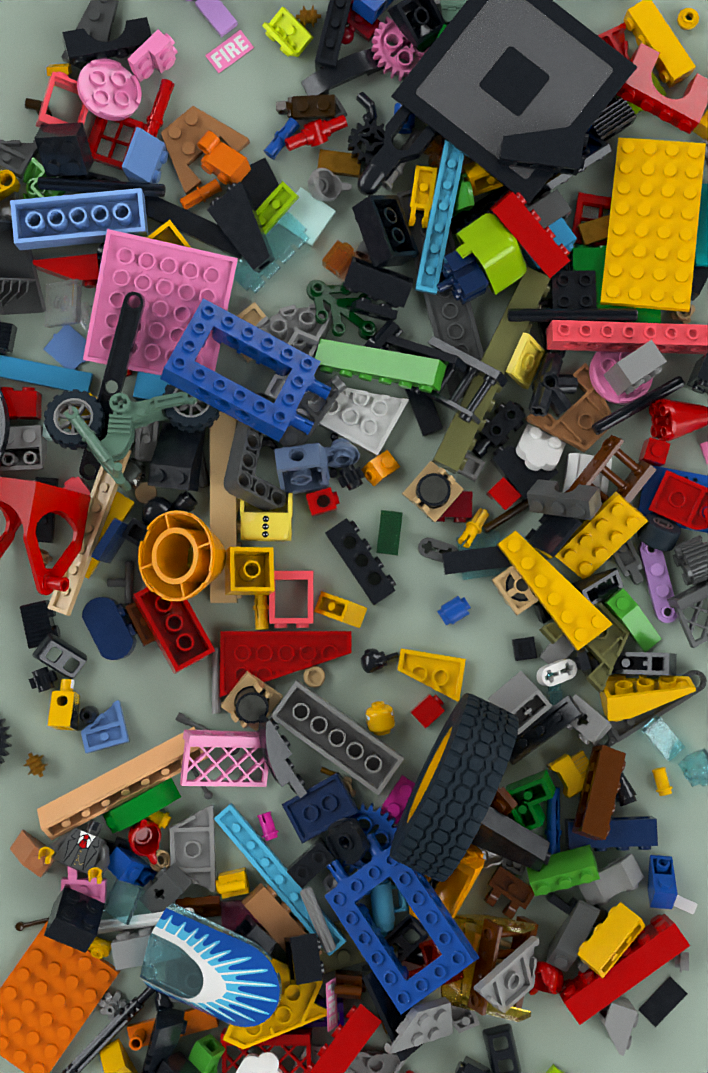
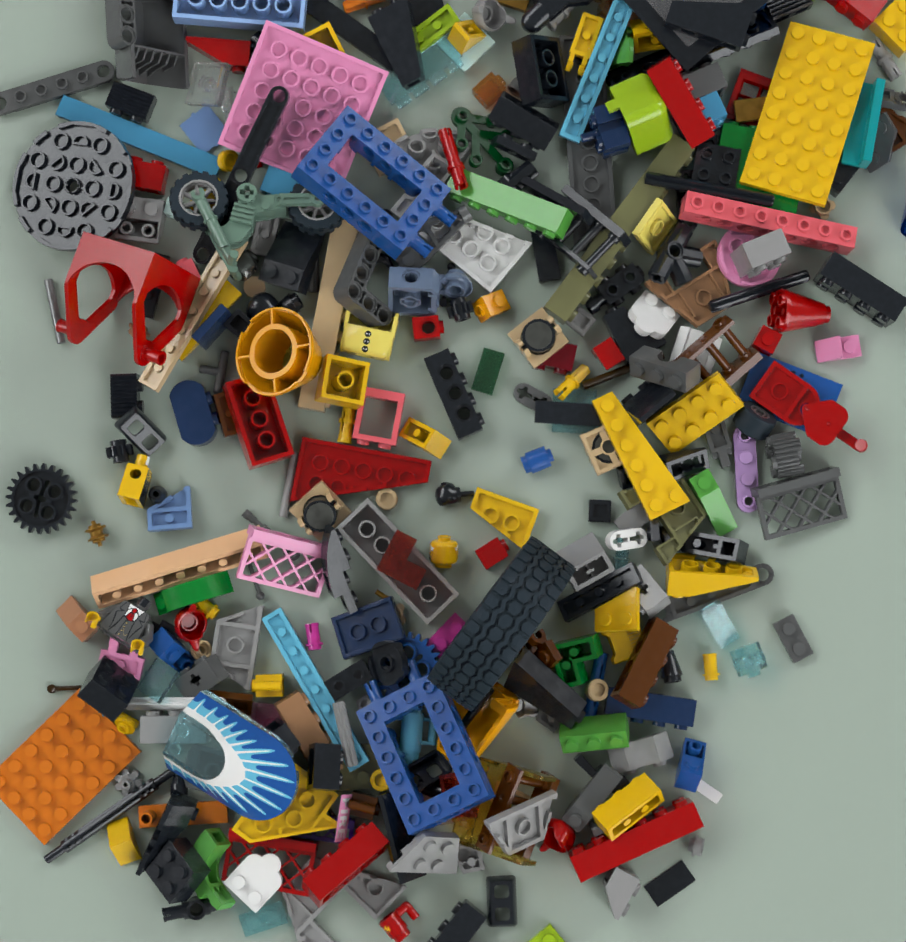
camera: 15 degrees right, 0 degrees up
(95, 374) = (227, 160): none -> yellow tile
(305, 209) = (465, 35): none -> yellow slope
(320, 338) = (455, 166): none -> red pin
(337, 743) = (396, 562): none -> clear red brick
(358, 959) = (377, 781): none -> yellow tile
(510, 886) = (542, 742): reddish brown plate -> none
(556, 827) = (596, 690): none -> tan tile
(565, 747) = (619, 613): none -> yellow wing

